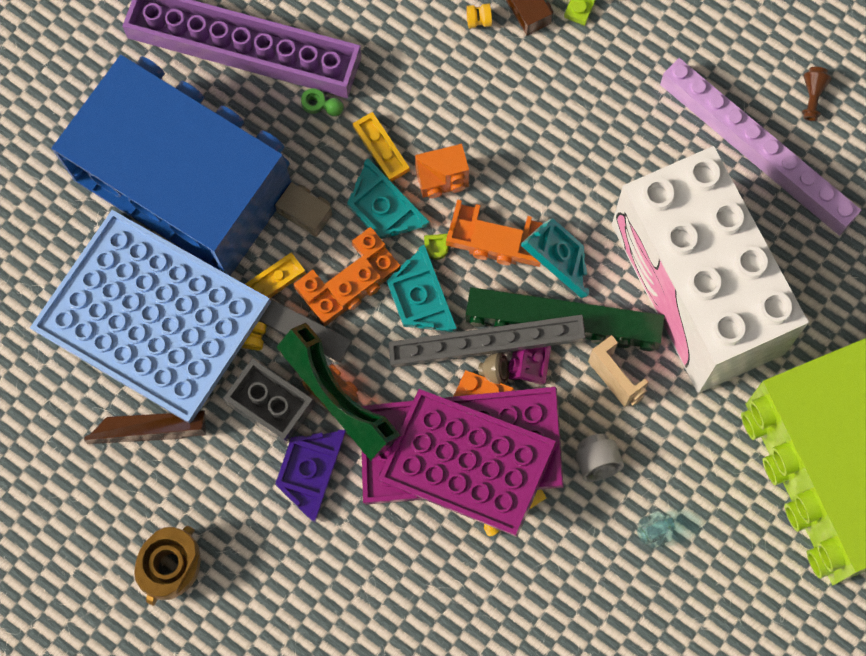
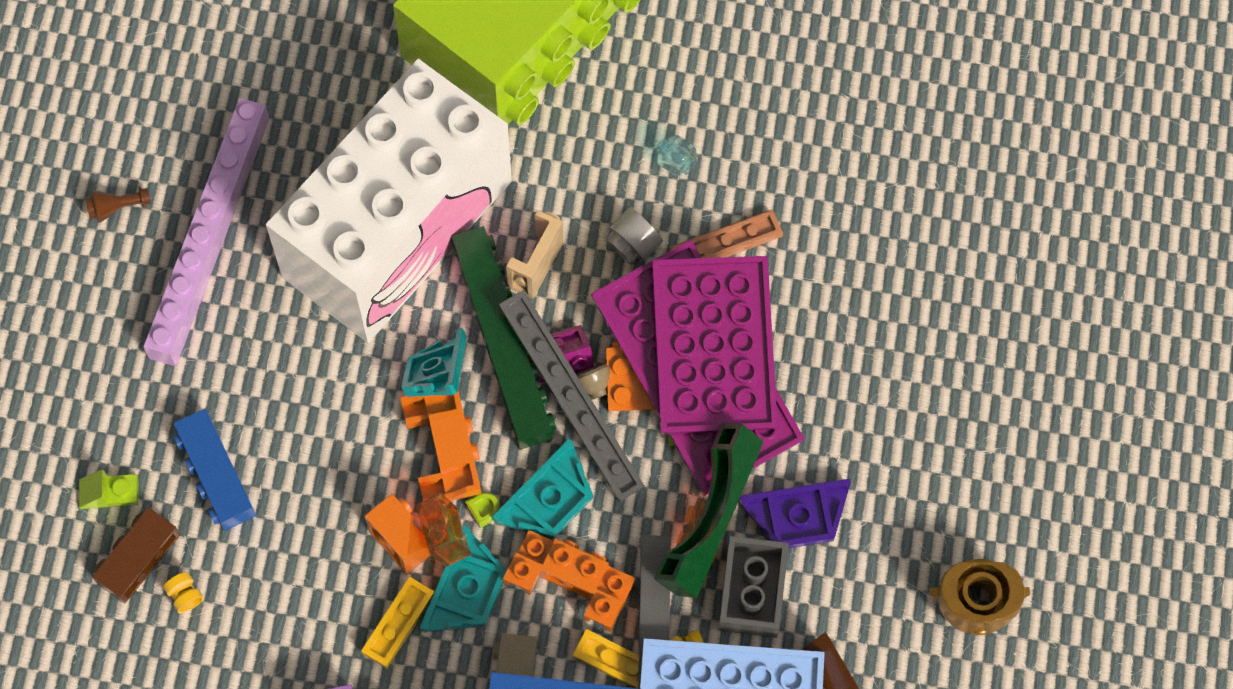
camera: 120 degrees left, 5 degrees down
(429, 202) = (443, 530): none -> clear orange brick
(561, 72) = (214, 469): none -> blue brick
(562, 534) = (737, 236): none -> nougat tile

